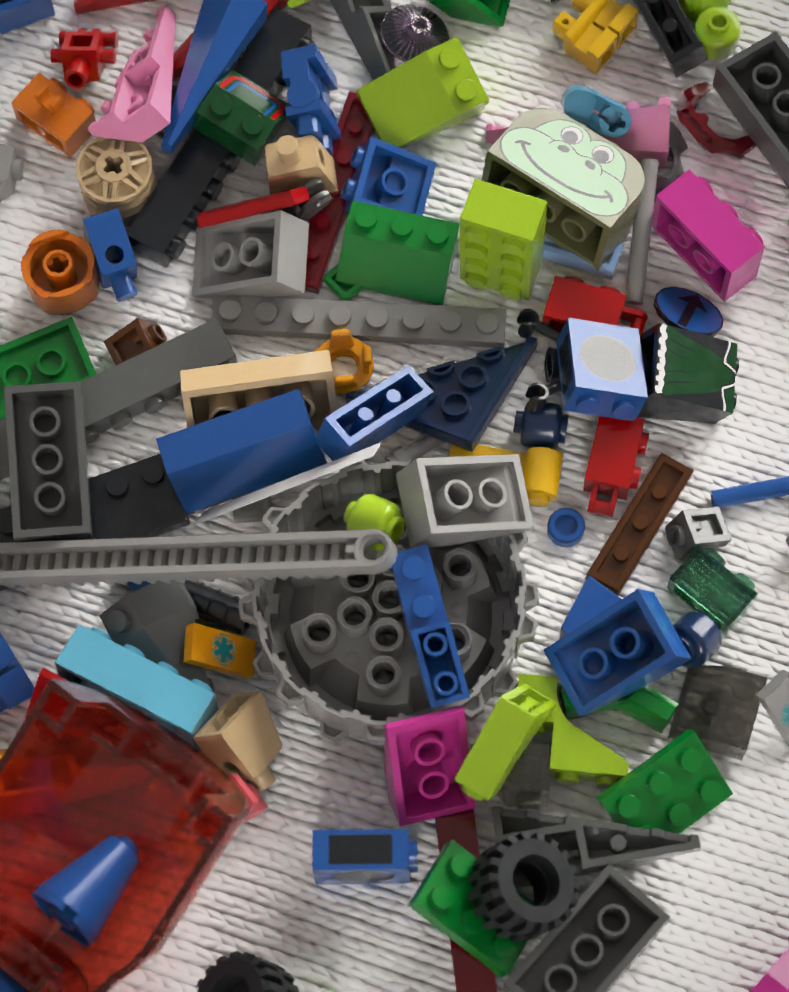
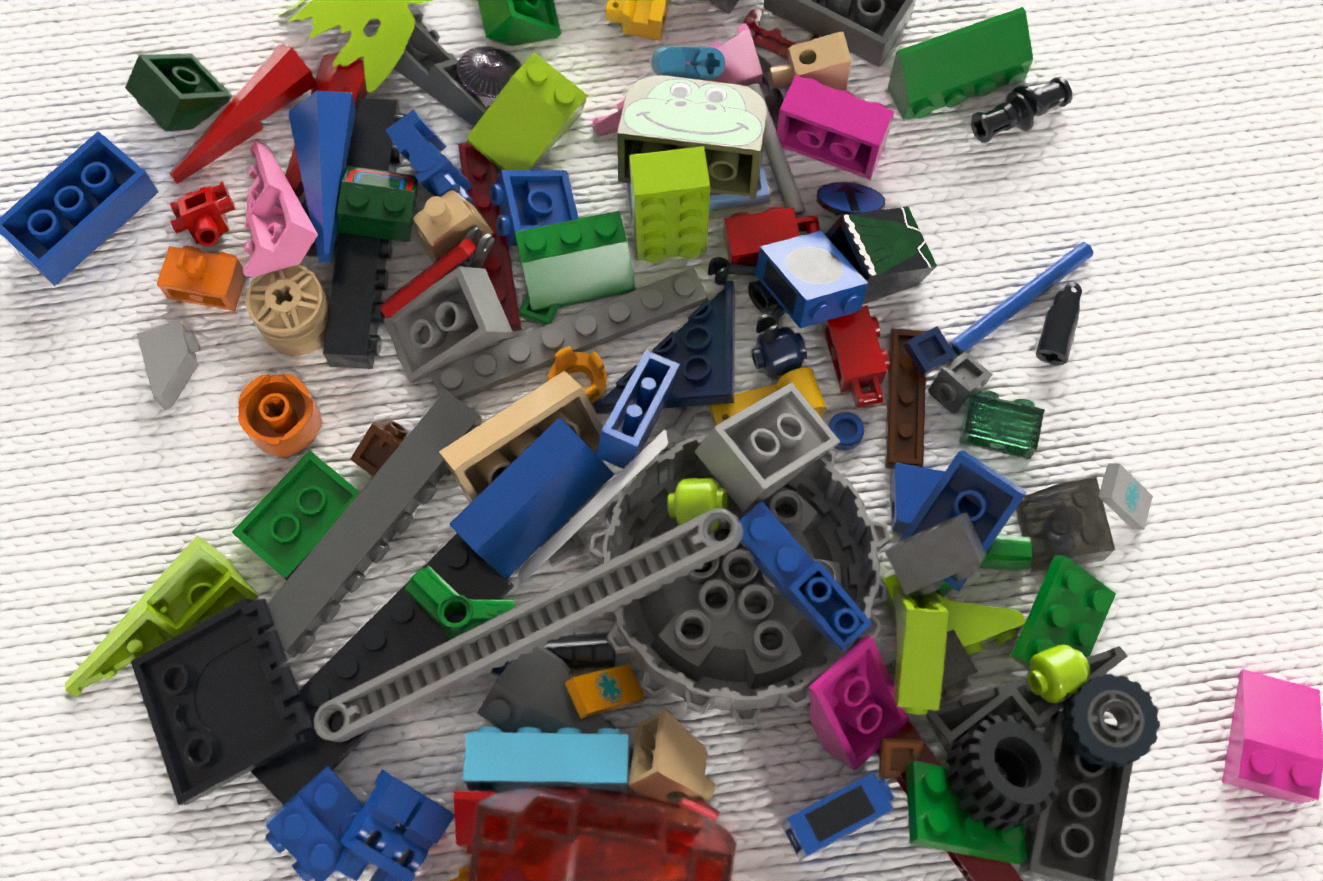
camera: 30 degrees left, 0 degrees up
(48, 462) = (359, 593): dark grey brick -> none
(111, 244) = (314, 367): blue torso -> none
(117, 505) = (441, 600): none -> green piece
(443, 829) = (896, 755): none -> dark orange tile
(567, 670) = (935, 554): none -> flat silver brick
(622, 828) = (1057, 673): none -> lime head
(666, 877) = (1134, 716): none -> black wheel
(681, 489) = (929, 351): none -> dark blue plate
(700, 637) = (1016, 467): dark blue head -> none
(725, 166) = (820, 59): none -> tan torso

